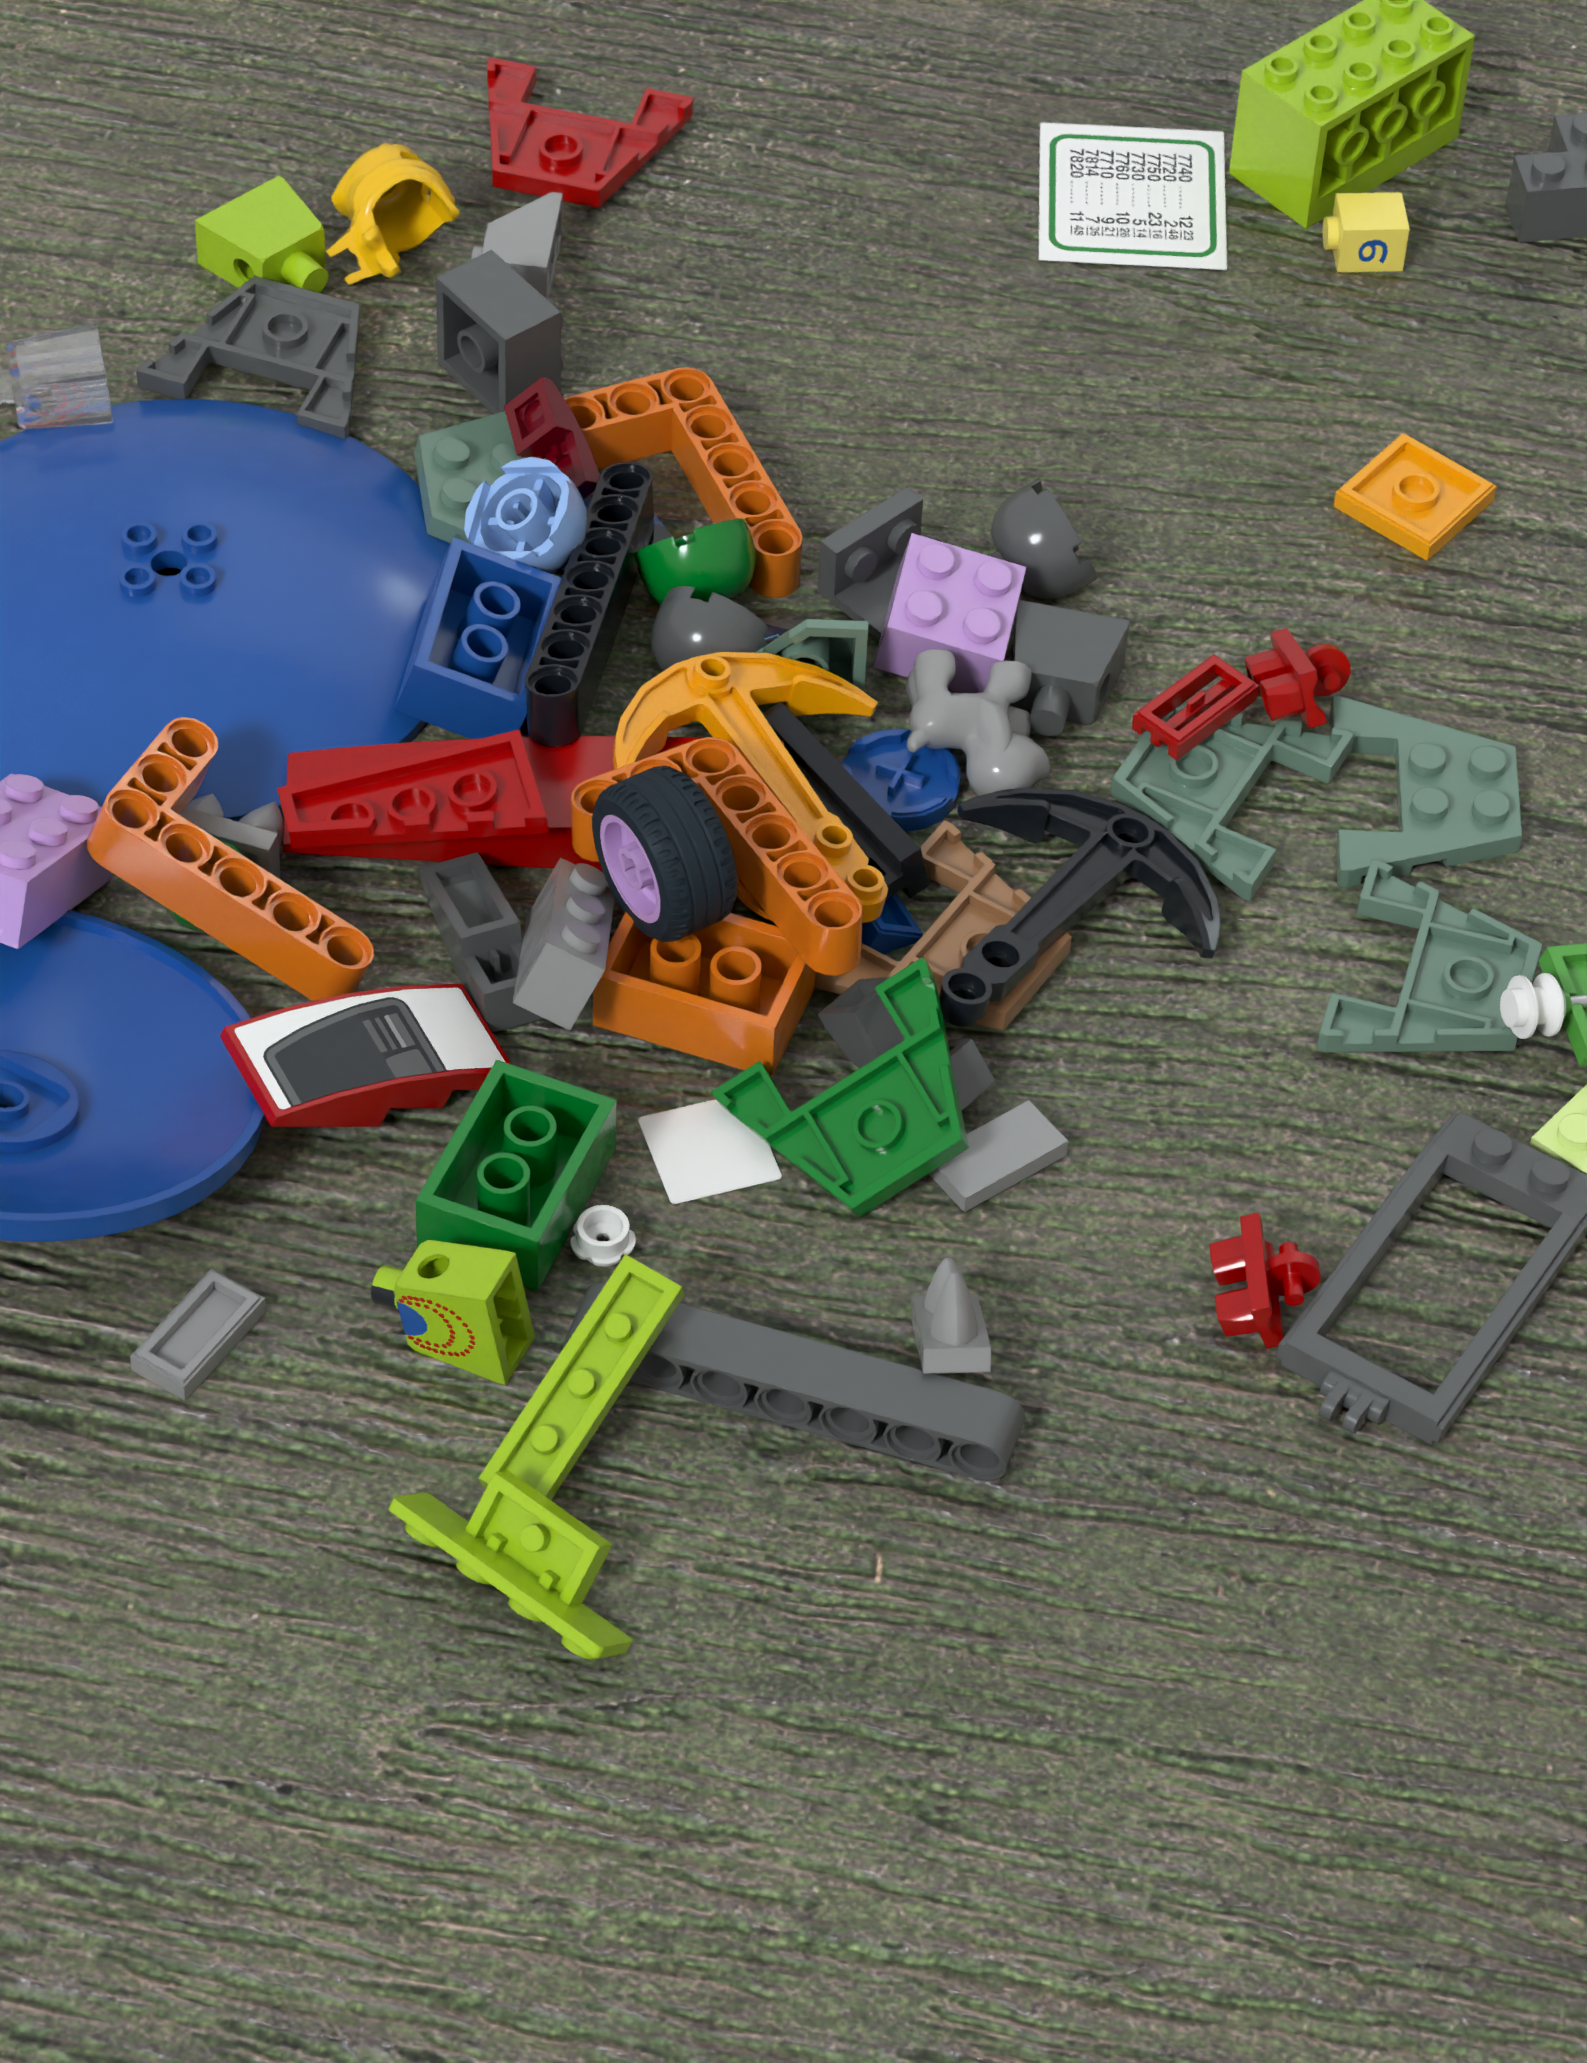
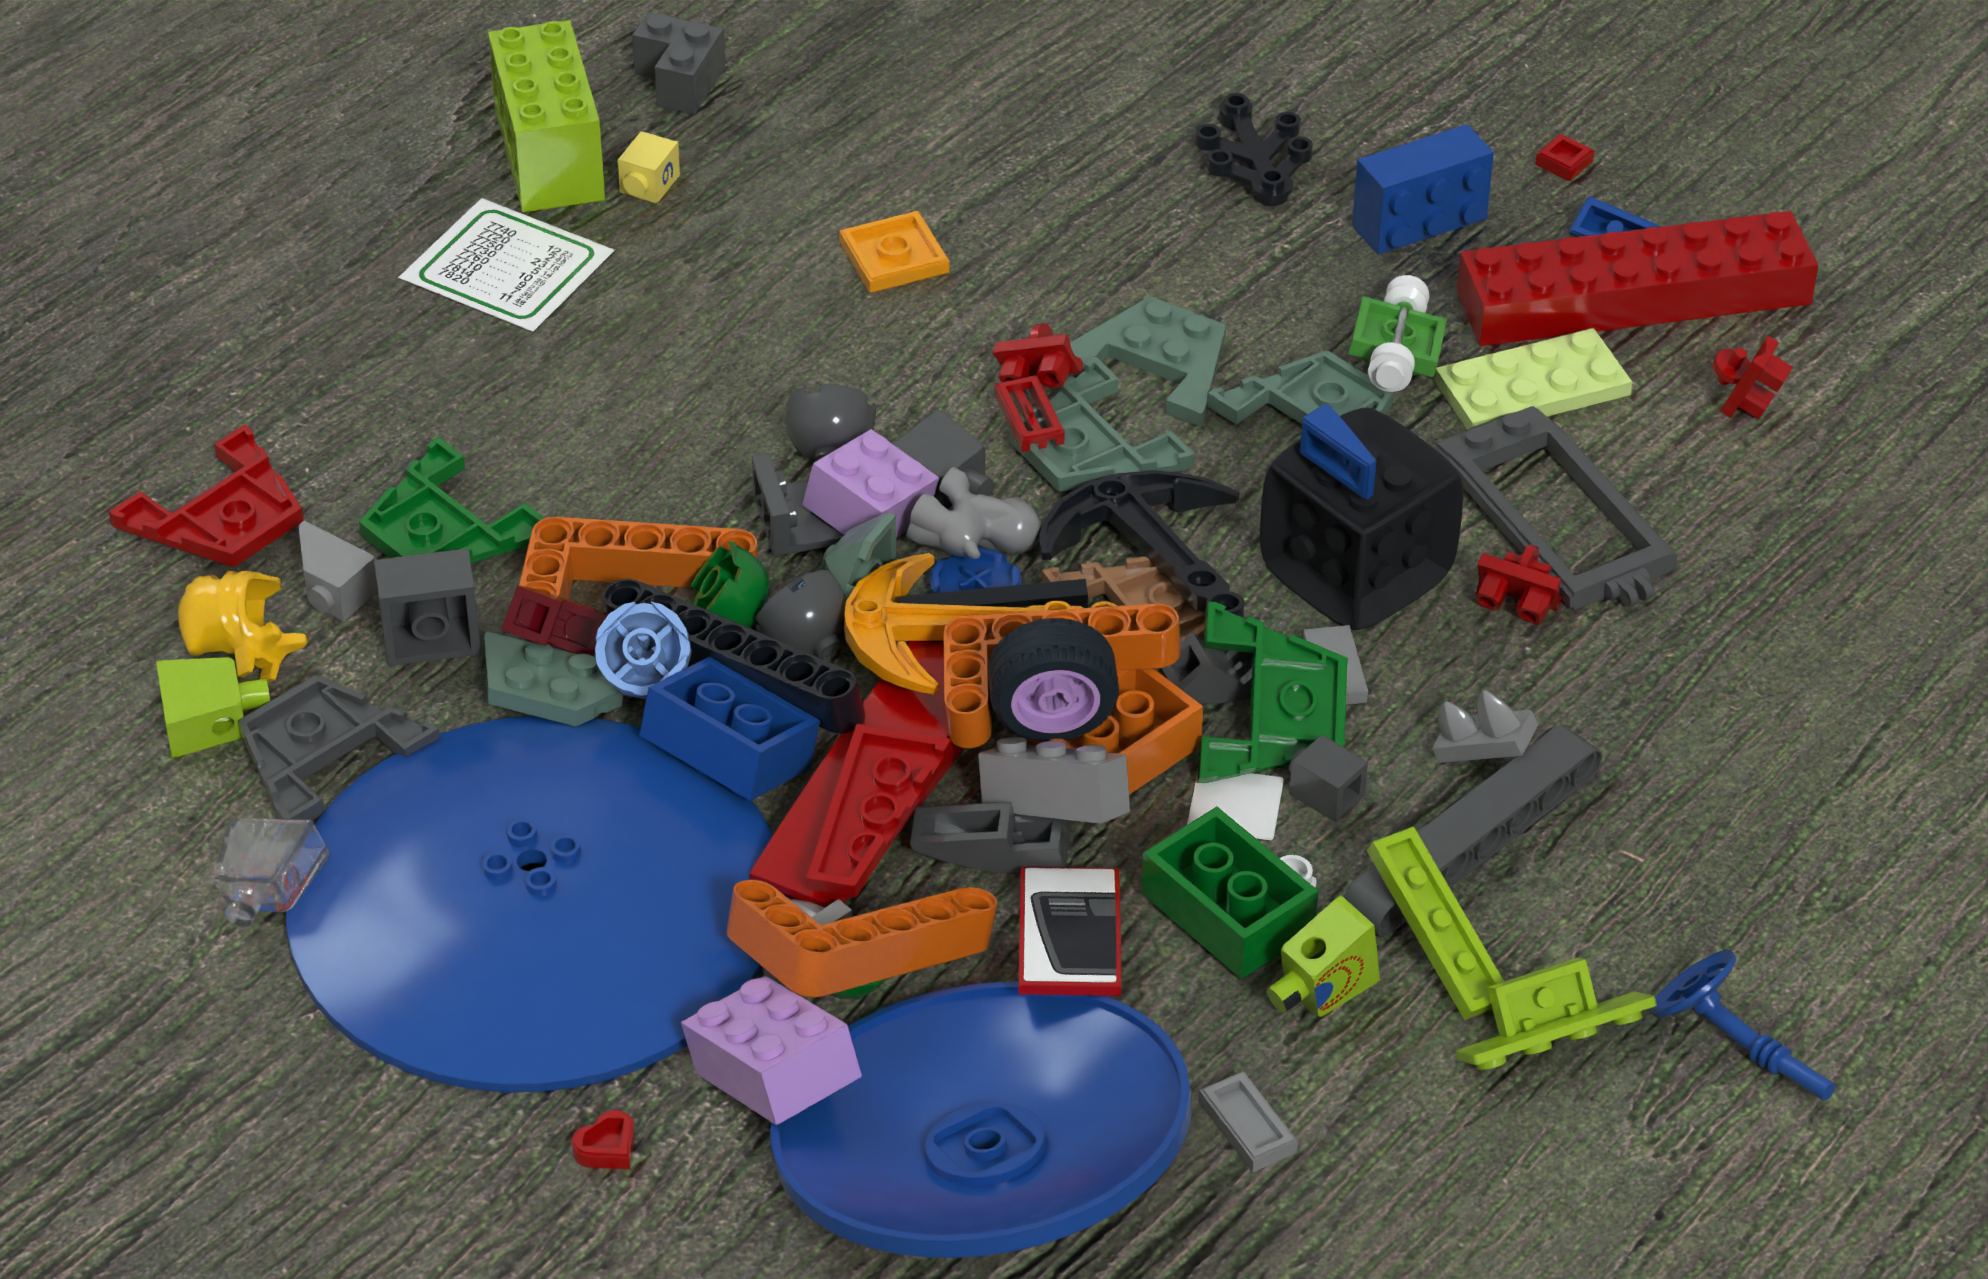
camera: 60 degrees left, 5 degrees down
(642, 1701) = (1700, 993): none -> blue dish
(651, 292) = (426, 520): none -> green wing
(783, 1209) = (1328, 777): none -> dark grey brick
(1197, 939) = (1337, 450): none -> blue slope
(1202, 1059) = (1357, 554): none -> black piece

